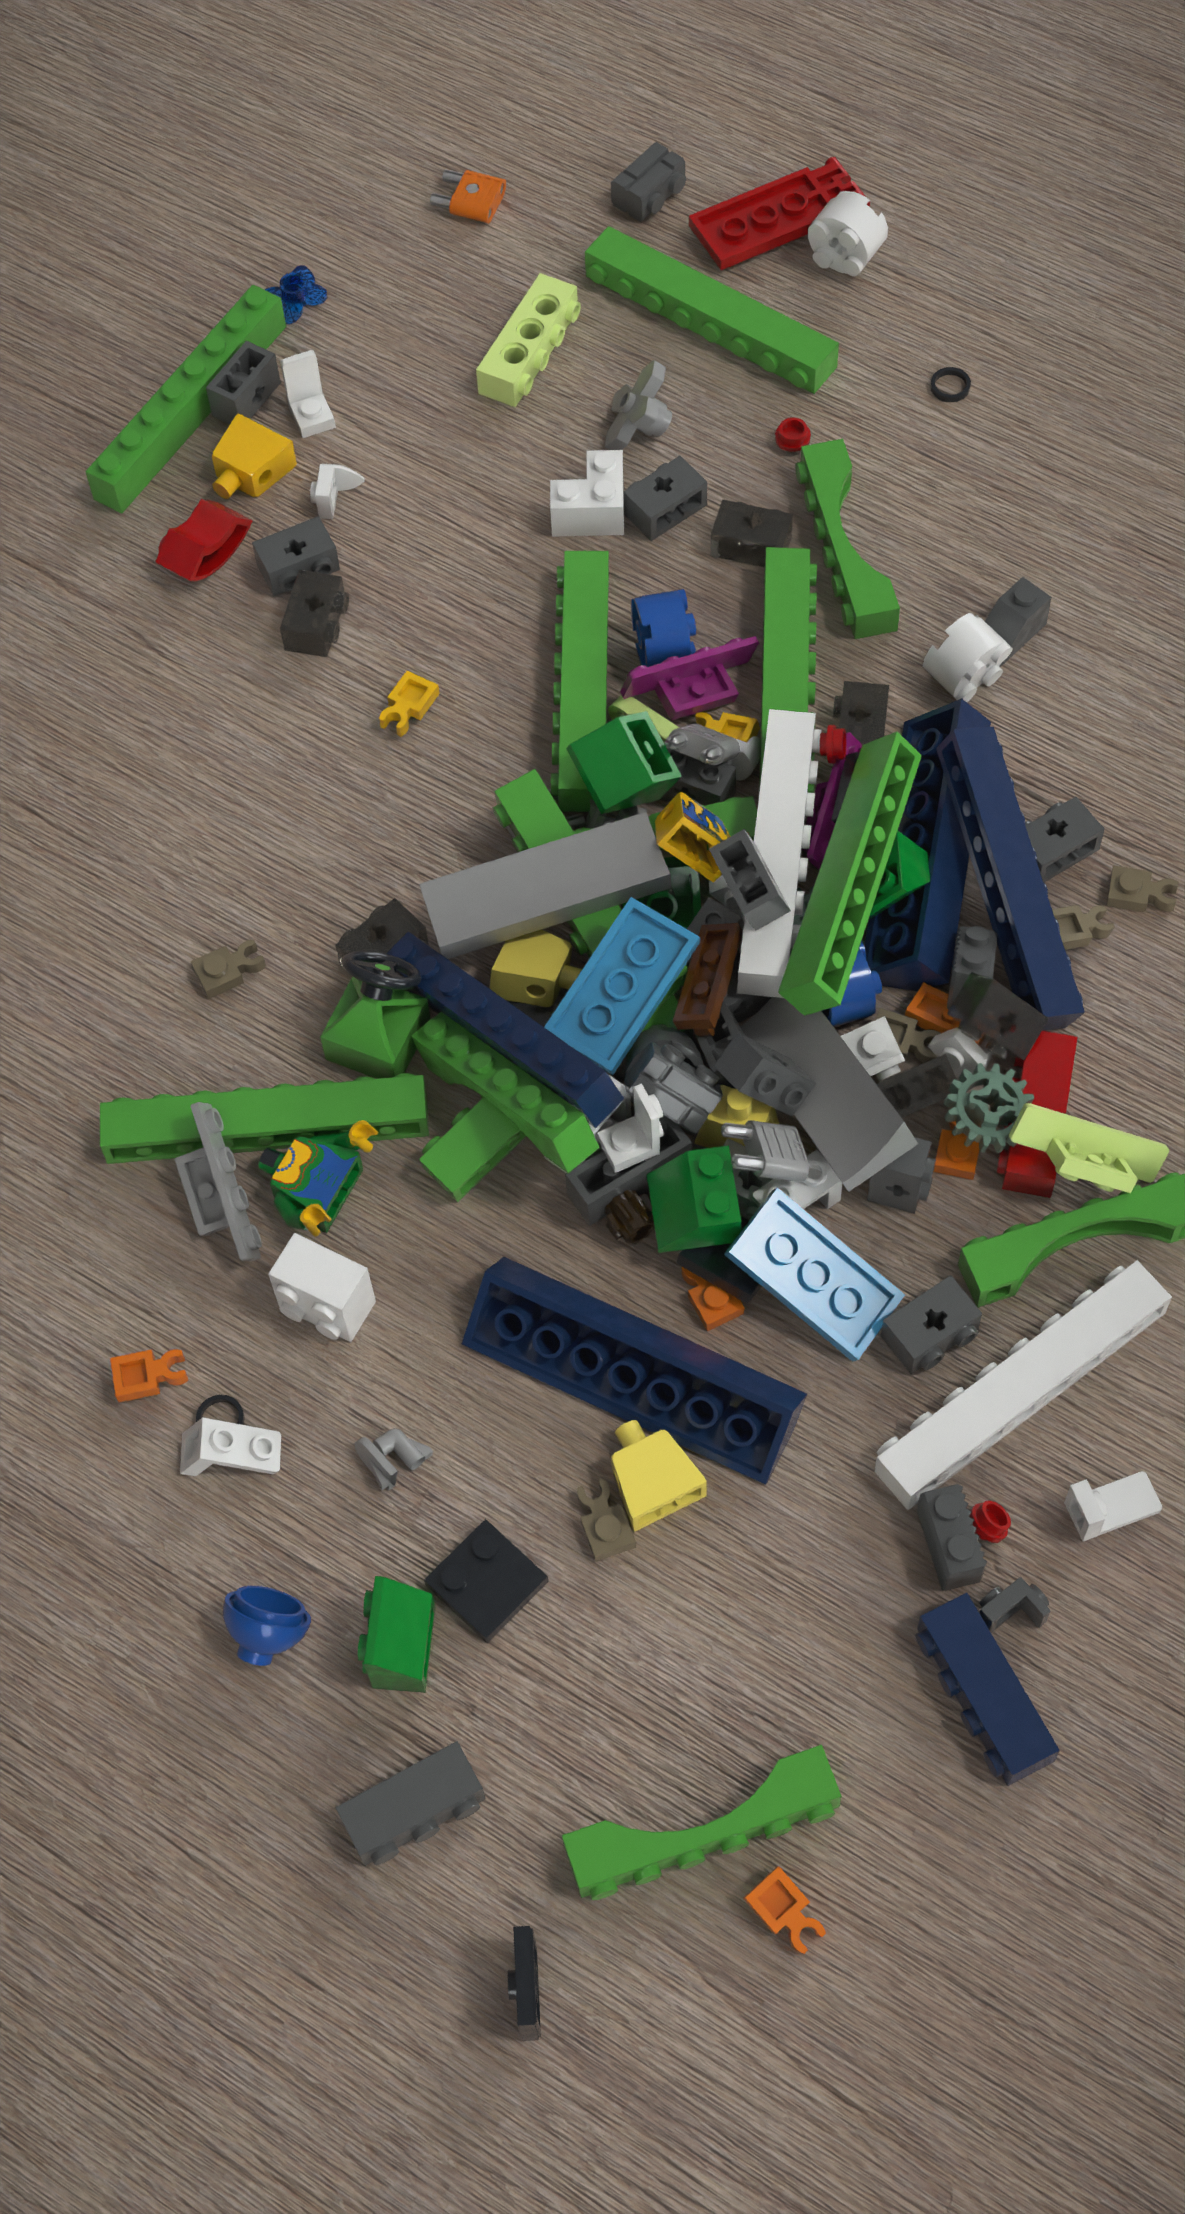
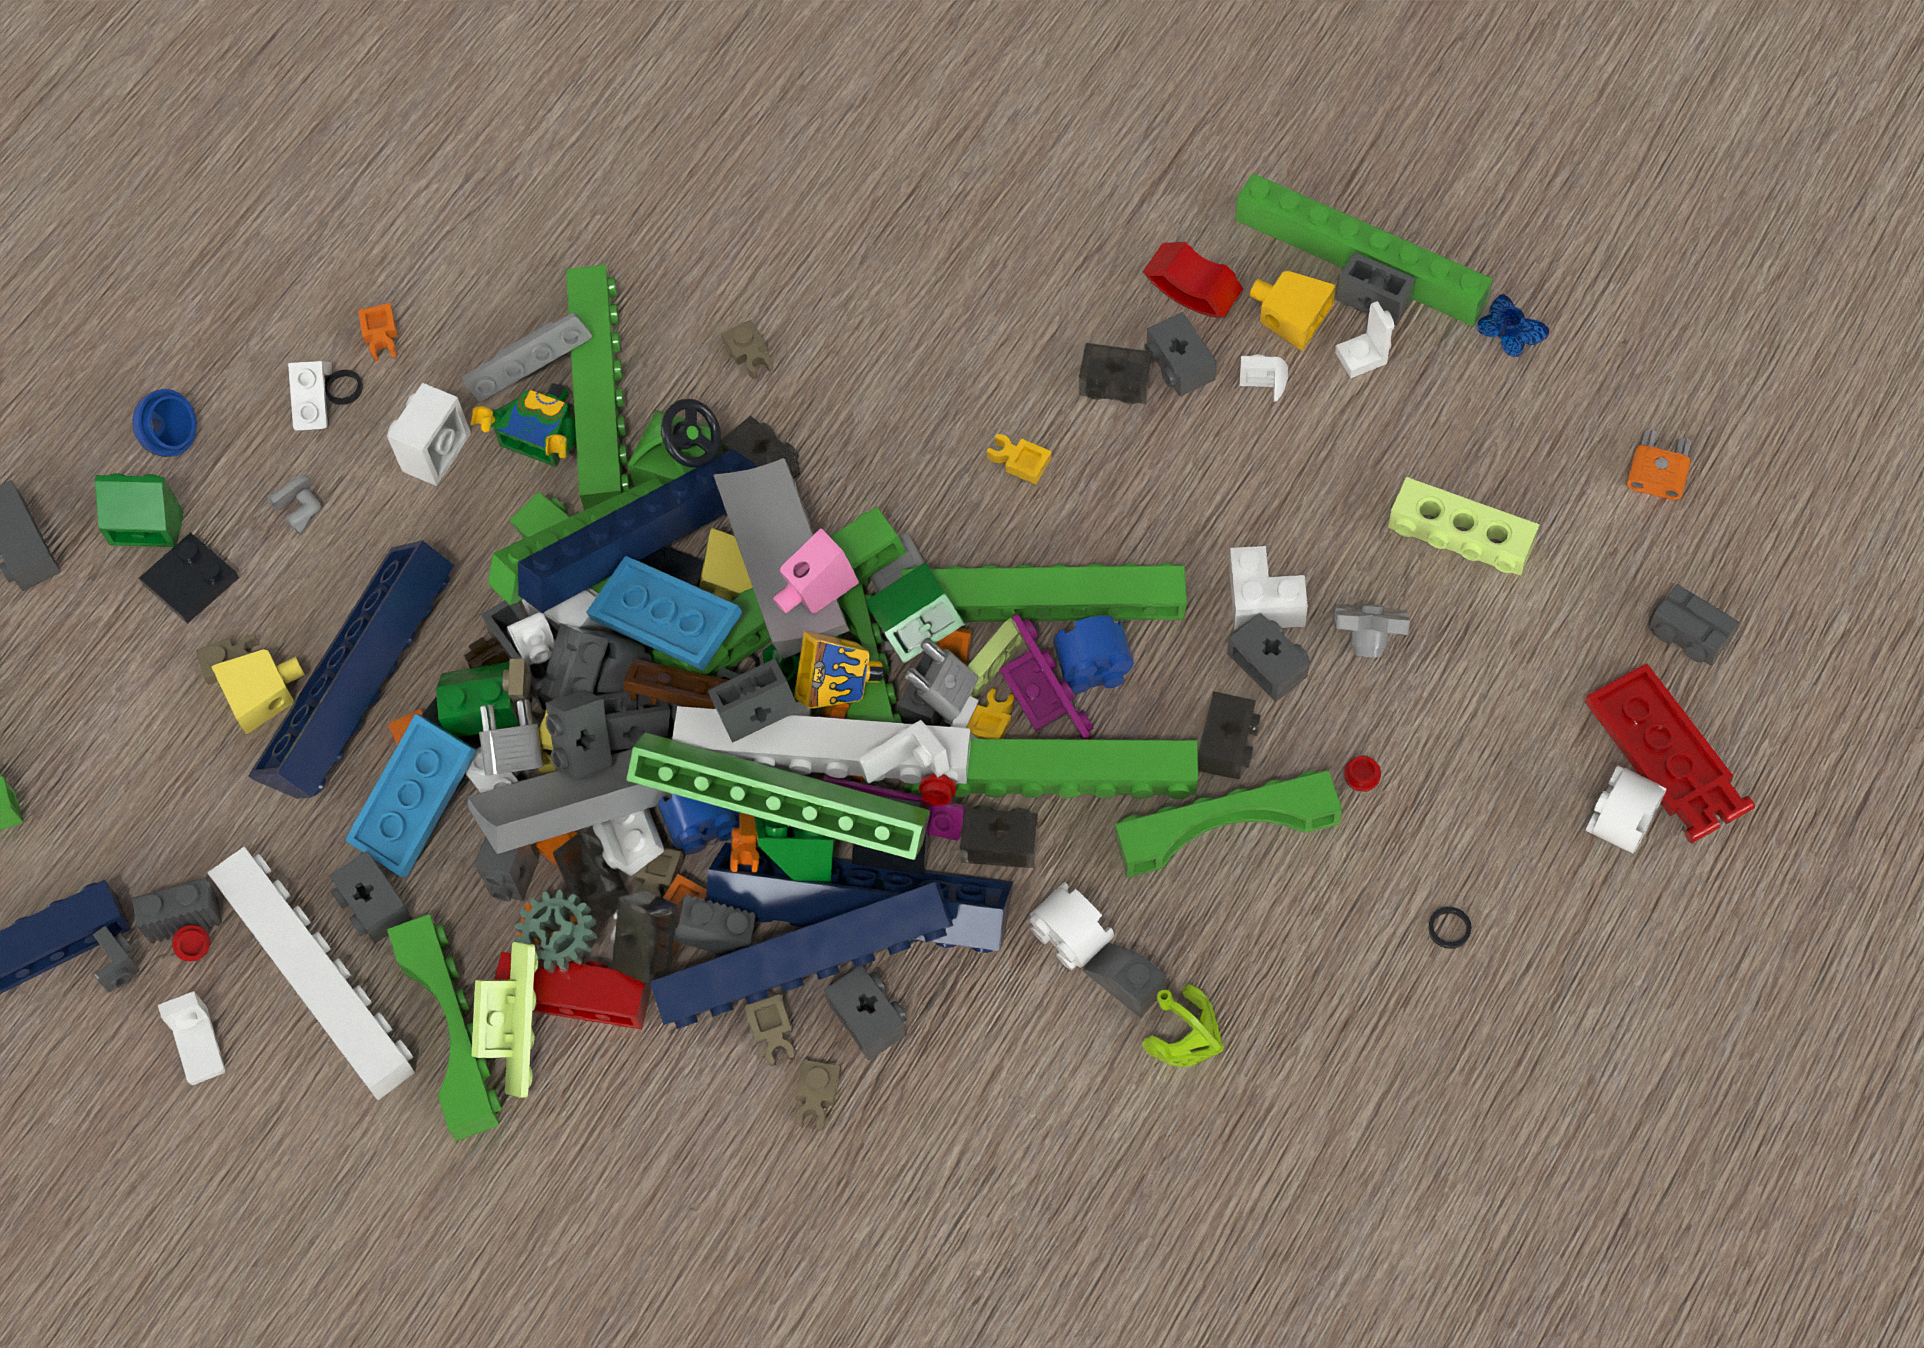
camera: 90 degrees right, 0 degrees up
(599, 820) = (815, 575): none -> bright pink torso
(700, 1131) = (517, 680): none -> dark tan plate
(711, 309) = (1518, 691): bright green brick -> none
(802, 732) = (908, 742): none -> white bracket
(888, 929) = (743, 844): none -> orange plate
(1075, 560) = (1204, 1032): none -> lime helmet

